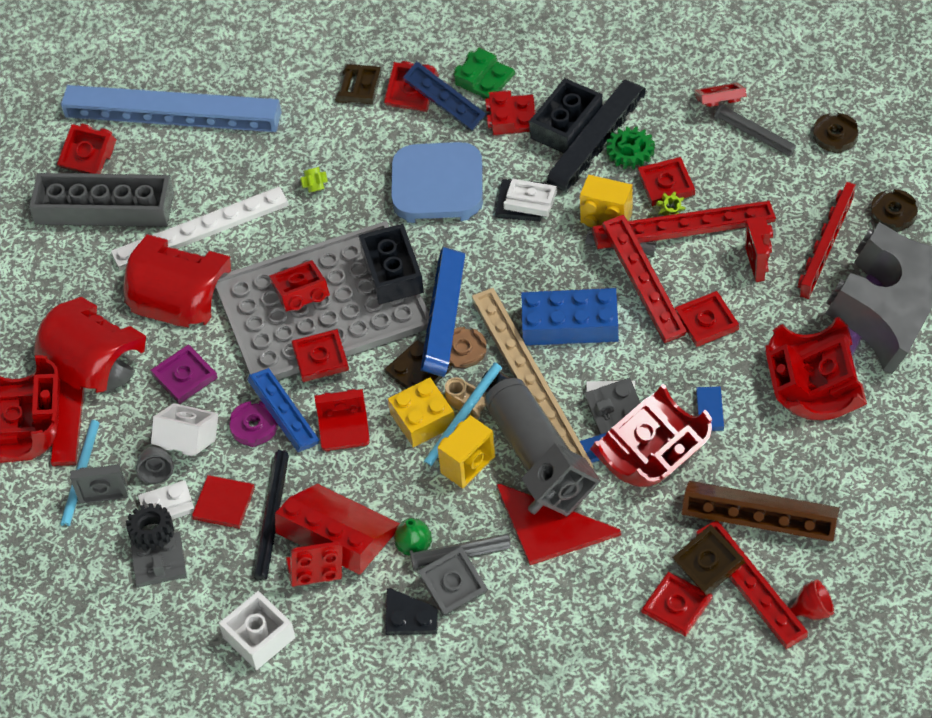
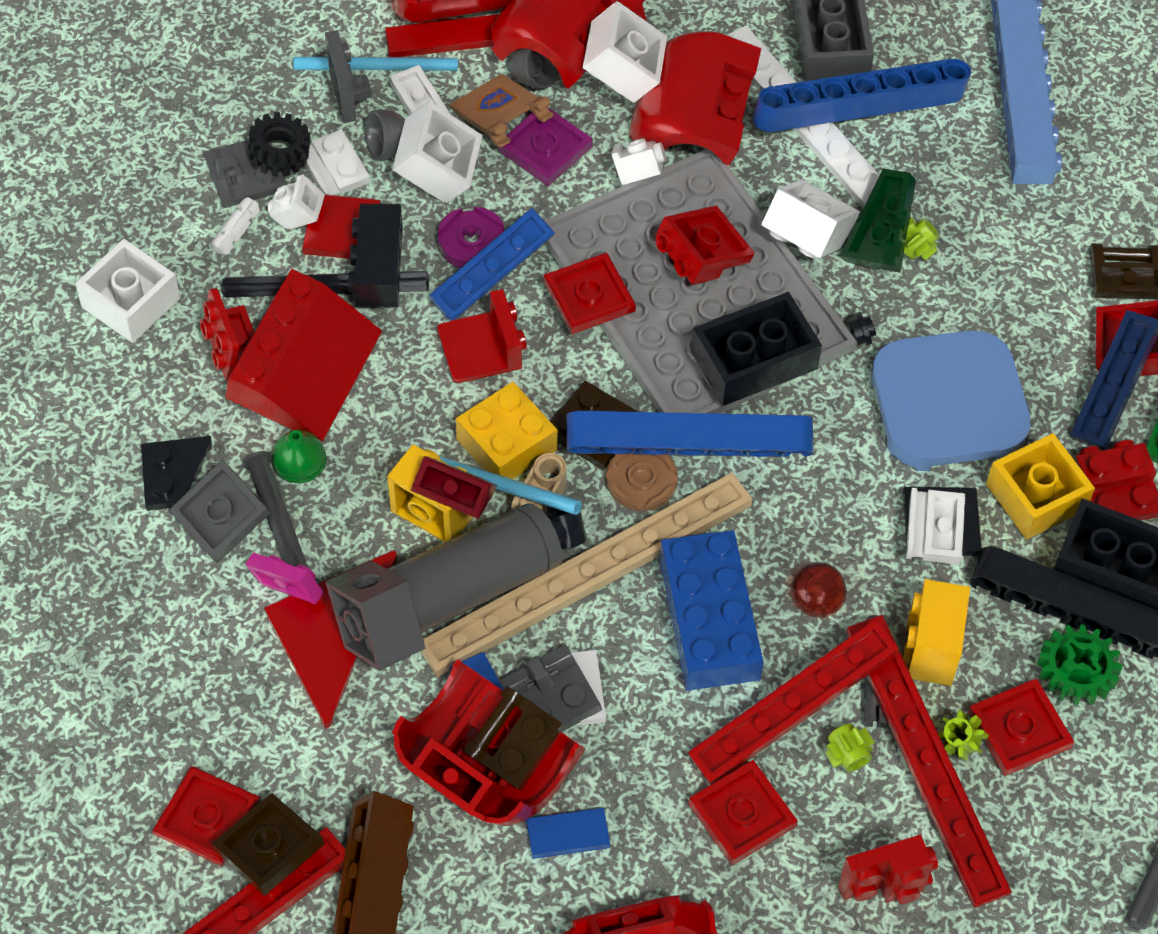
camera: 75 degrees right, 5 degrees up
(121, 445) = (414, 89): none -> white plate
(134, 305) = (625, 52): none -> white brick
(144, 396) = (498, 103): none -> medium nougat flag
(195, 191) = (861, 95): none -> blue beam
(207, 567) = (235, 226): none -> white axle
(210, 520) = (296, 203): none -> white brick
(217, 317) = (638, 160): none -> white brick
(264, 470) = (376, 255): none -> black brick
(292, 227) = (809, 219): none -> white brick
(302, 193) = (883, 224): none -> dark green wing
(374, 217) = (862, 329): none -> black plate
(477, 424) = (453, 487): none -> dark red slope
(511, 144) = (1039, 485): none -> yellow brick
(518, 535) = (285, 578): none -> dark pink plate
(559, 265) = (818, 590): none -> clear red hair
(658, 413) = (524, 744): none -> dark brown plate
(672, 260) = (850, 747): none -> lime gear

